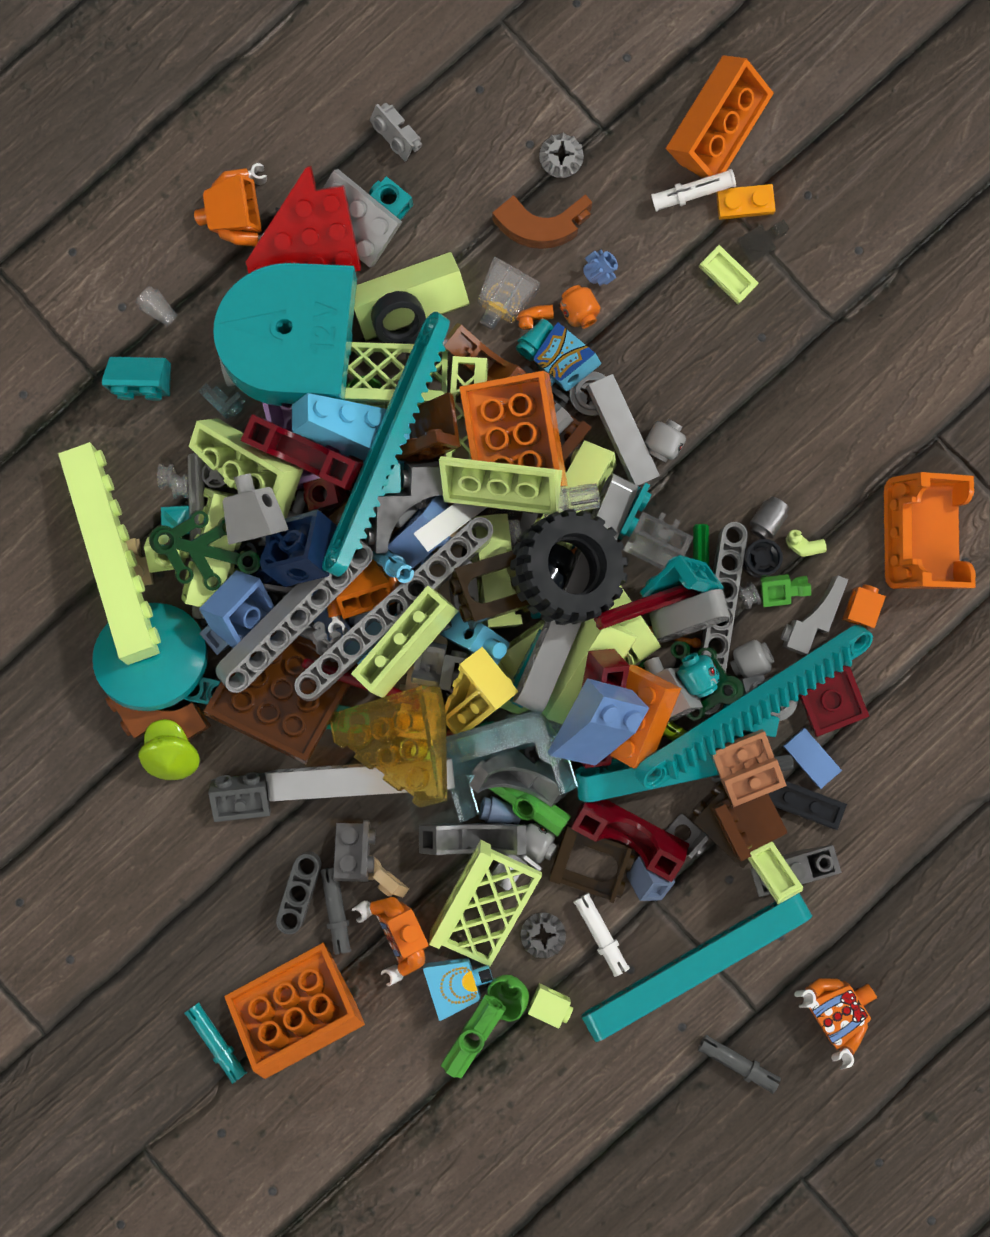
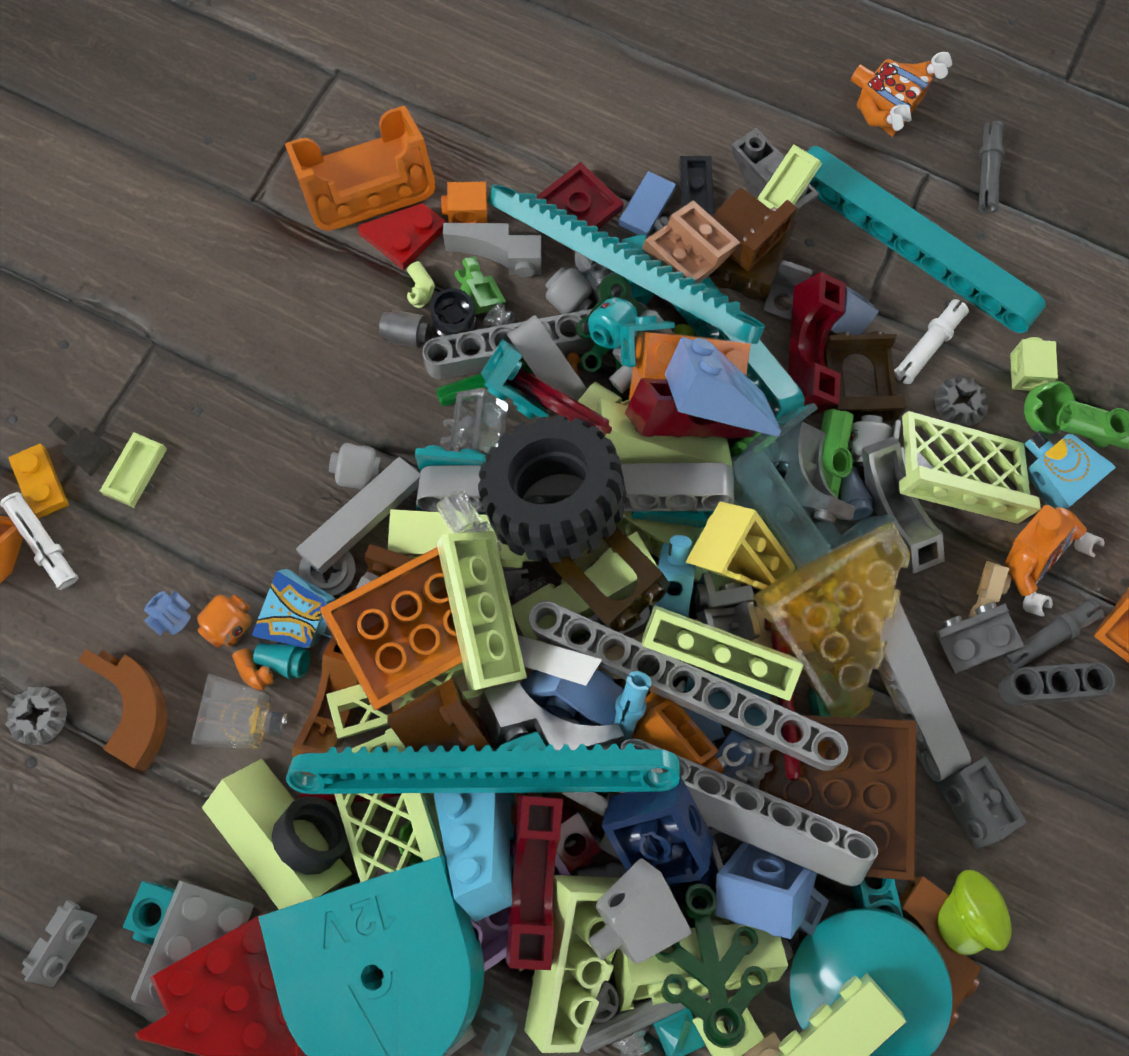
camera: 115 degrees left, 15 degrees down
(678, 690) = (627, 336): none -> teal bracket
(859, 548) = (403, 233): none -> red wing

